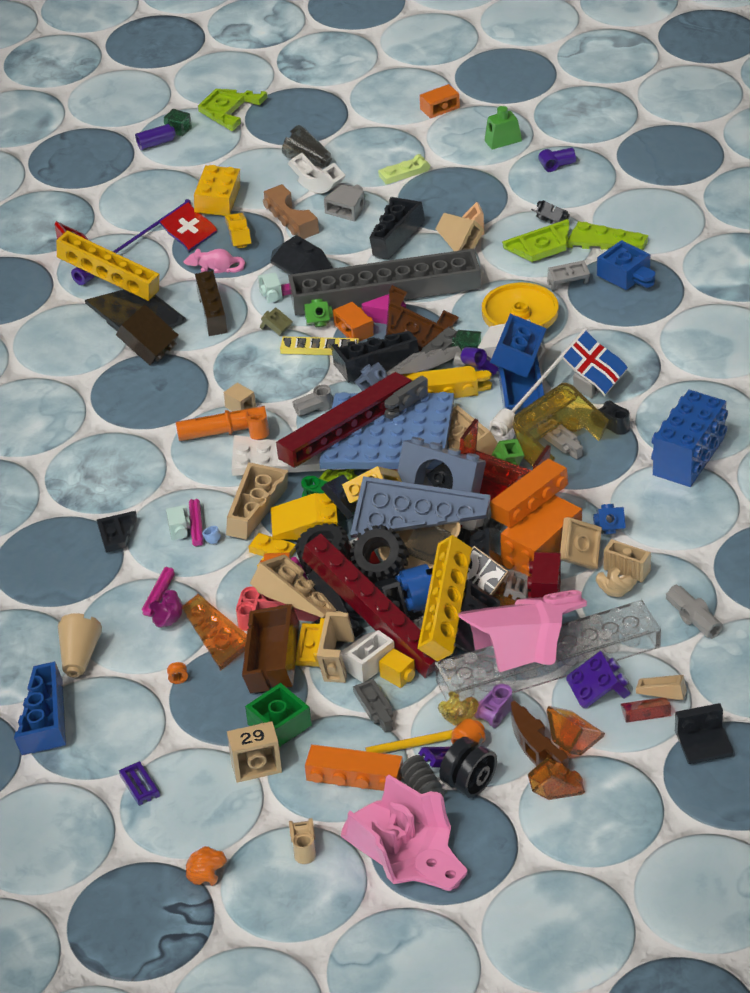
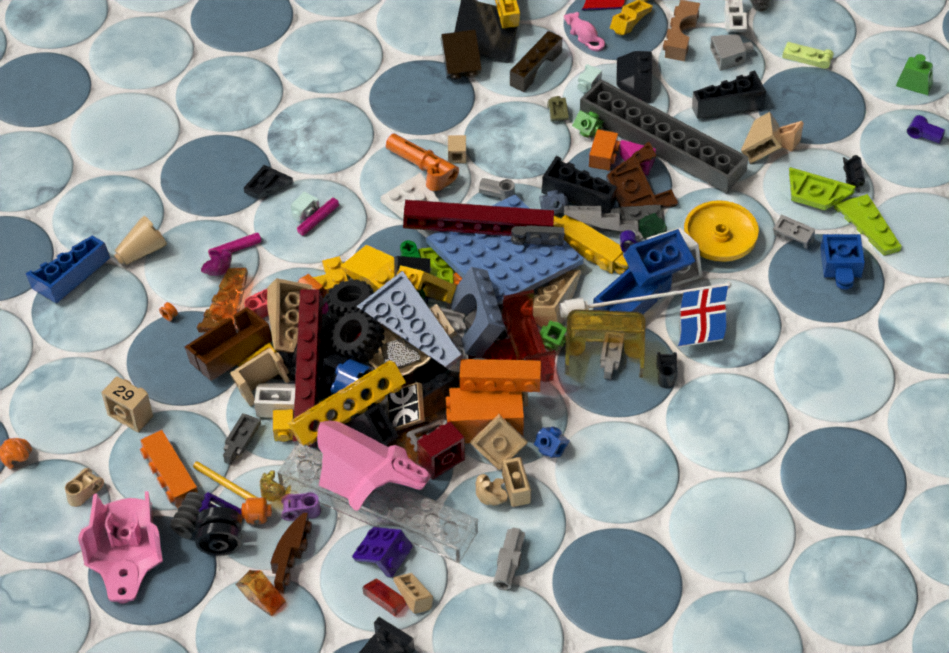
camera: 45 degrees right, 10 degrees up
(145, 795) = (61, 367): dark purple tile -> none
(212, 534) = (312, 232): light blue hinge -> none
(256, 495) = (368, 227): tan wedge -> none
(284, 709) = (174, 393): green brick -> none
(312, 345) = (561, 147): light yellow tile -> none
(439, 101) = (908, 16): orange brick -> none
(572, 731) = (318, 566): clear orange slope -> none
(689, 437) = (682, 429): blue brick -> none

